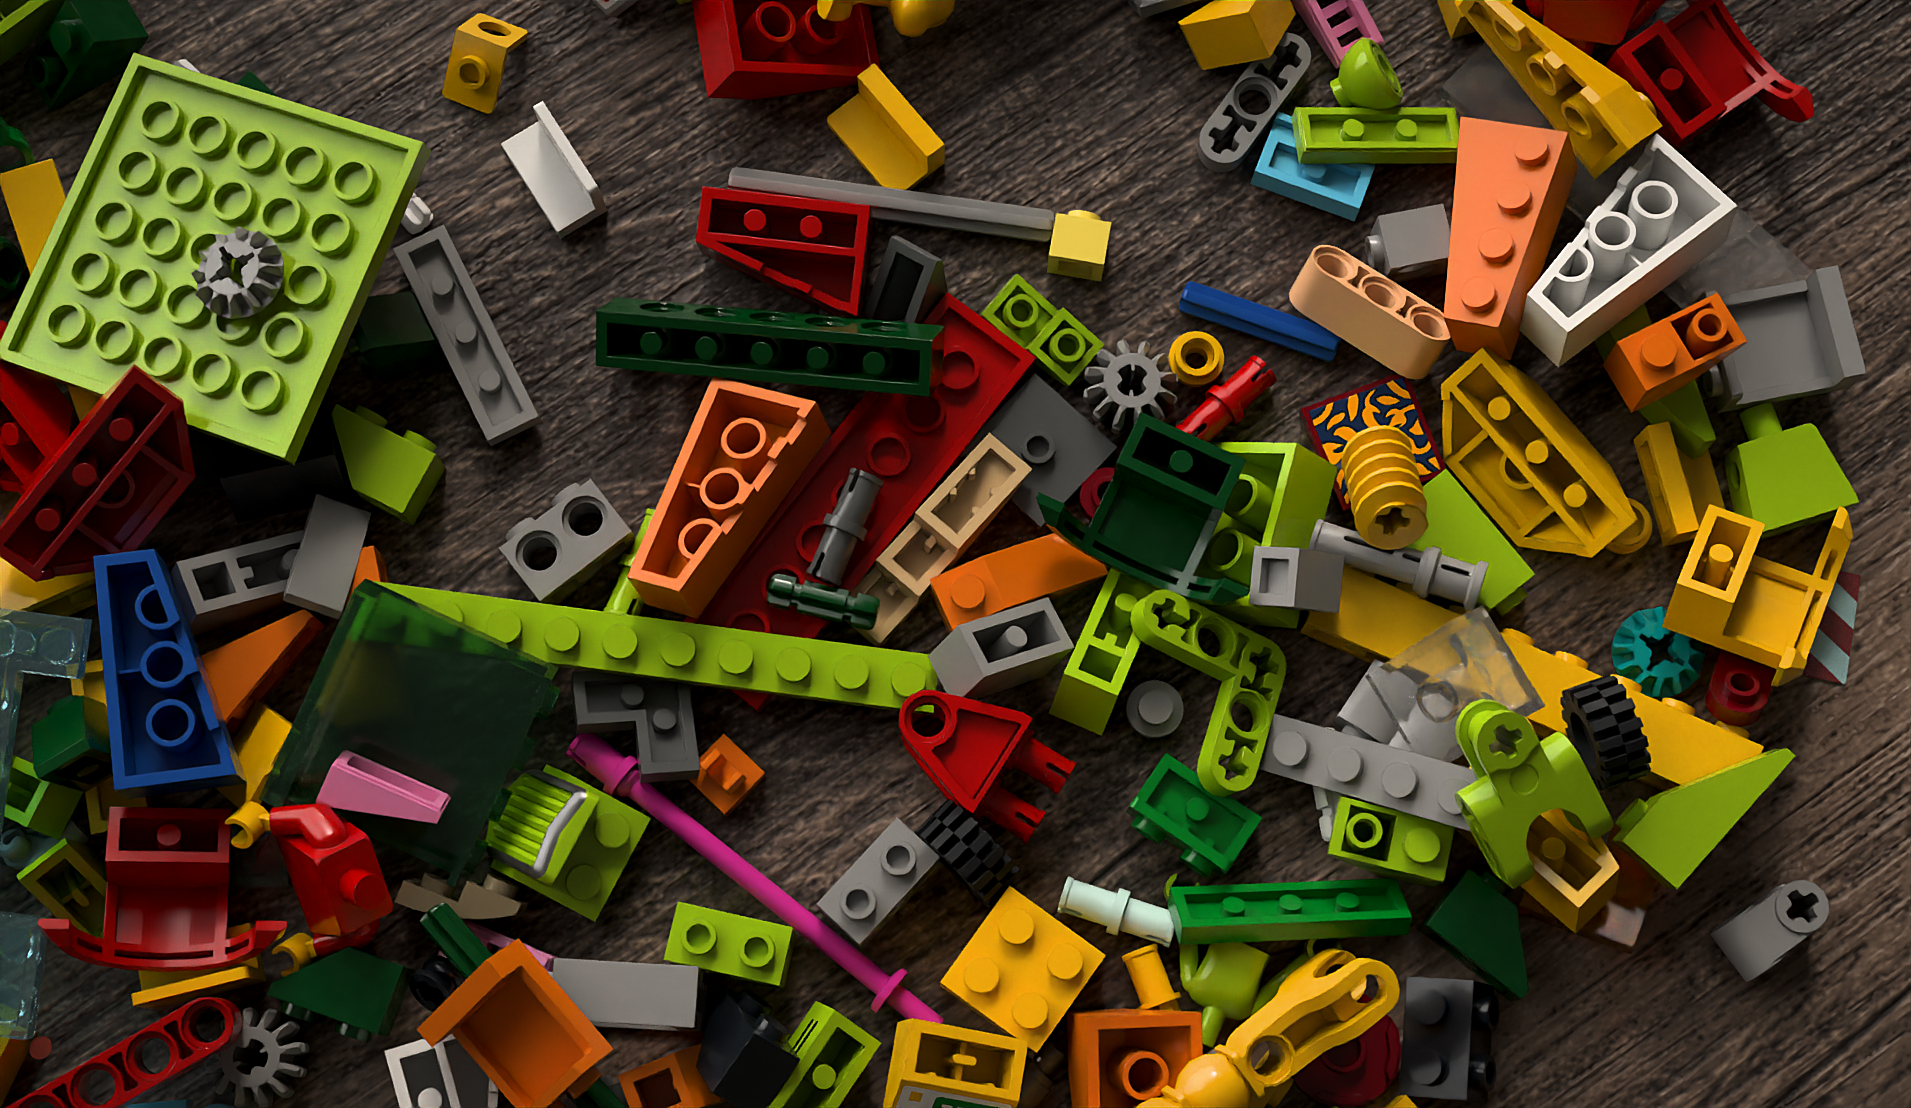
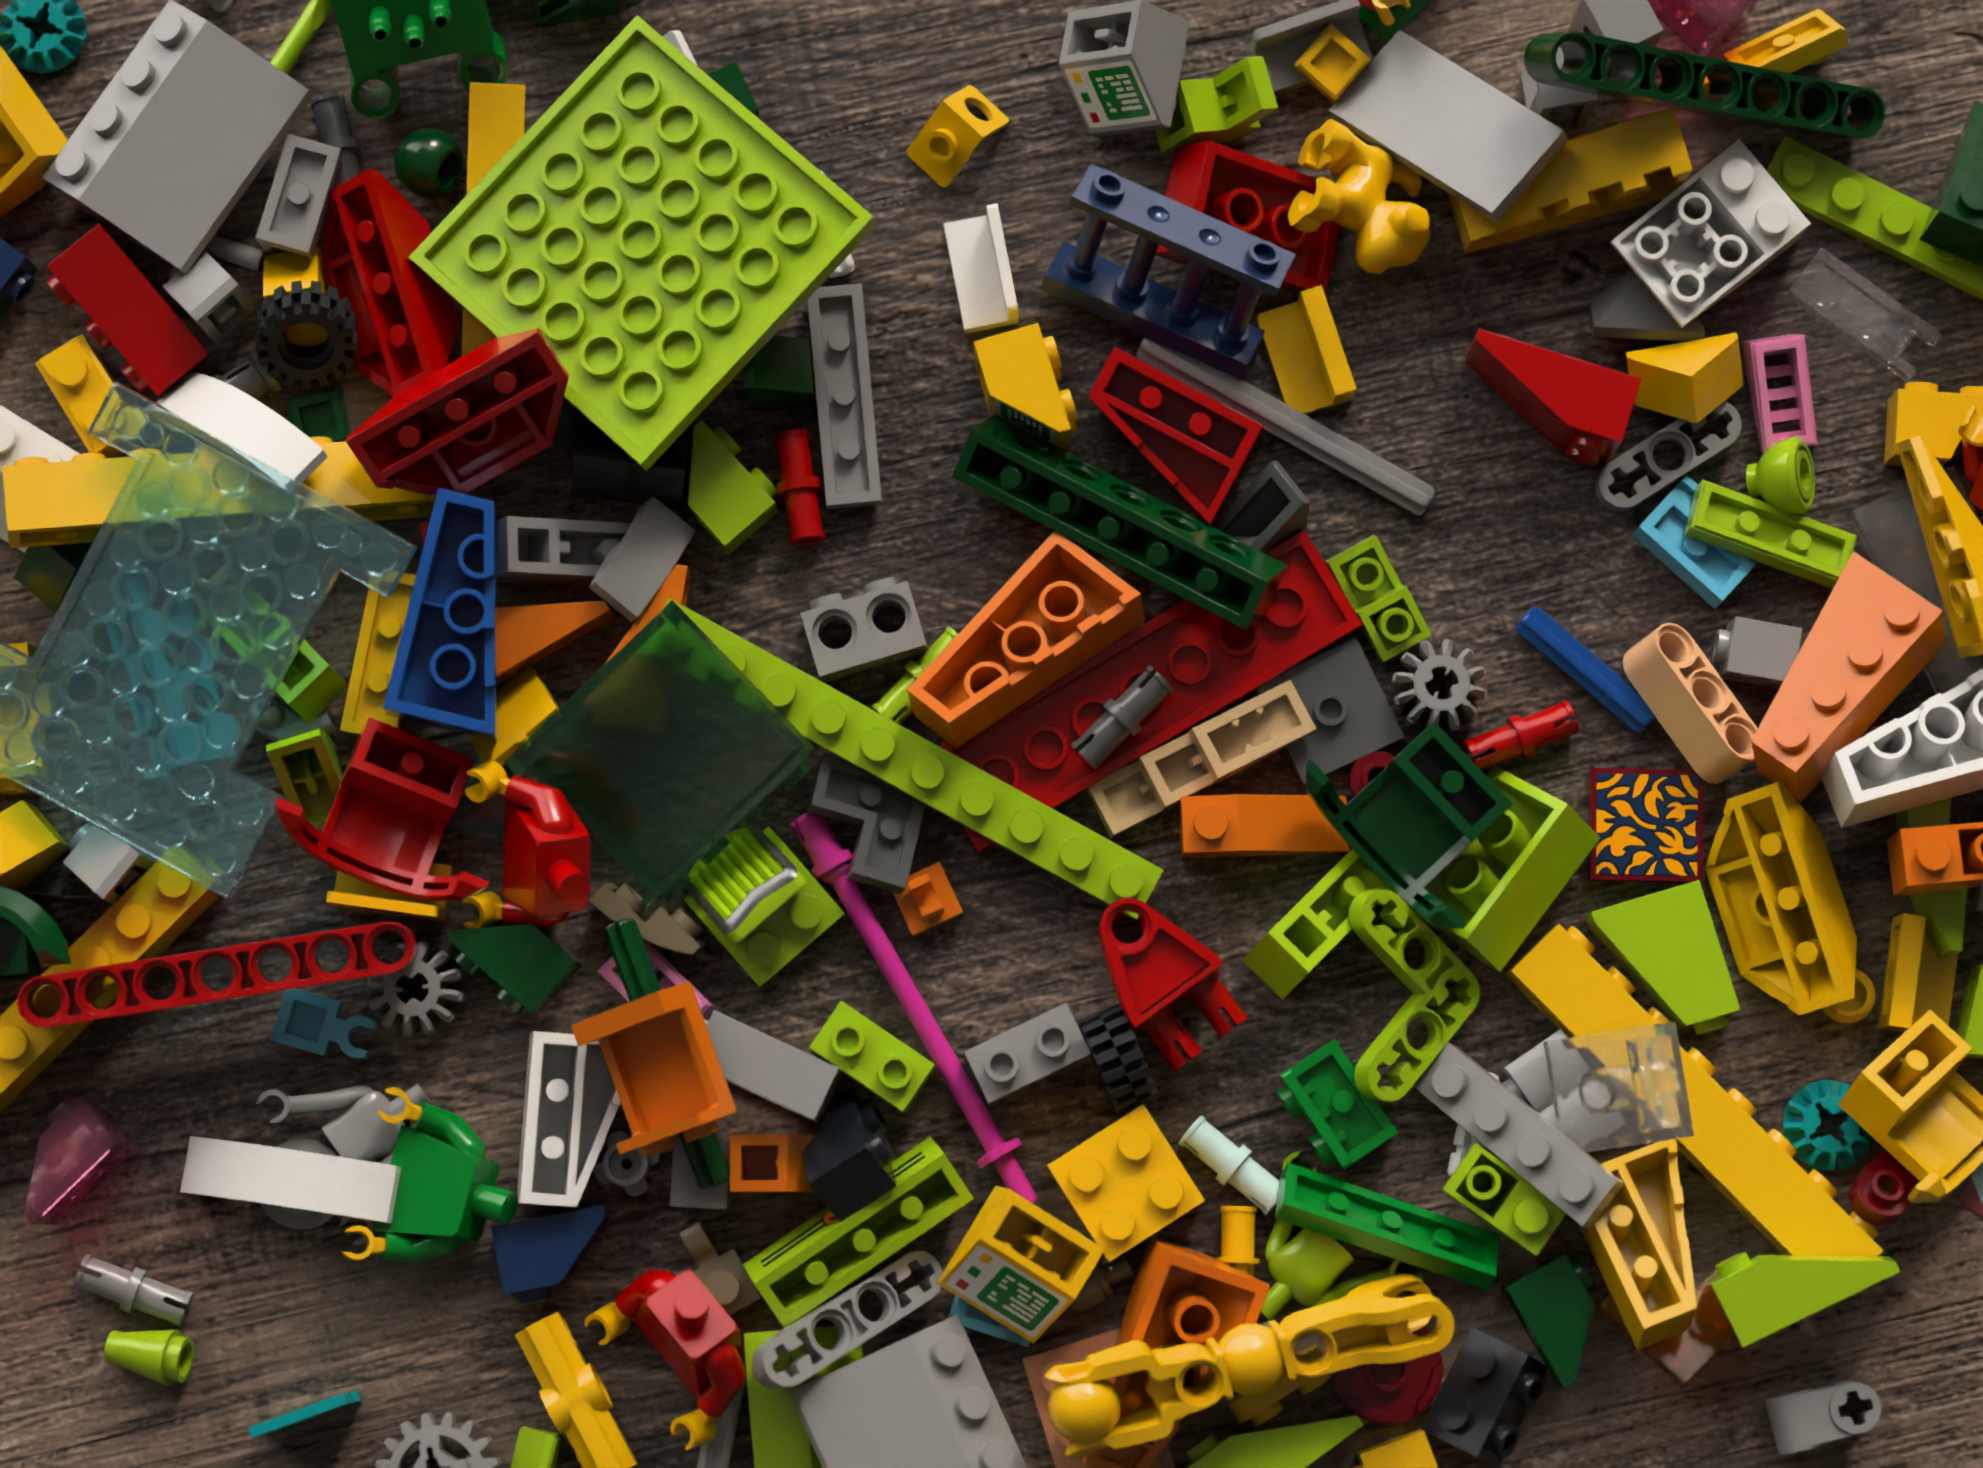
camera: 25 degrees right, 5 degrees up
(40, 1047) = (226, 905): coral piece -> none
(73, 744) = (359, 645): dark green slope -> none
(261, 274) = (680, 286): light grey gear -> none
(372, 788) = (609, 793): bright pink slope -> none
(435, 982) = (599, 988): black bush -> none
(455, 435) = (799, 487): none -> red pin
(628, 253) = (1020, 383): none -> yellow slope
(725, 147) = (1150, 307): none -> dark blue fence
(823, 601) = (1076, 778): dark green axle -> none
(1001, 650) = (1220, 888): light grey brick -> none
(1079, 245) = (1446, 531): light yellow plate -> none
(1133, 79) = (1562, 397): none -> red slope
(1154, 709) = (1341, 994): light grey plate -> none
(1199, 343) = (1521, 667): yellow plate -> none
(1296, 579) = (1514, 931): light grey brick -> none
(1384, 488) = (1631, 877): yellow piece -> none
(1424, 570) = (1638, 968): light grey pin -> none
(1518, 783) = (1635, 1198): lime piece -> none
(1606, 731) = (1737, 1181): black tyre -> none

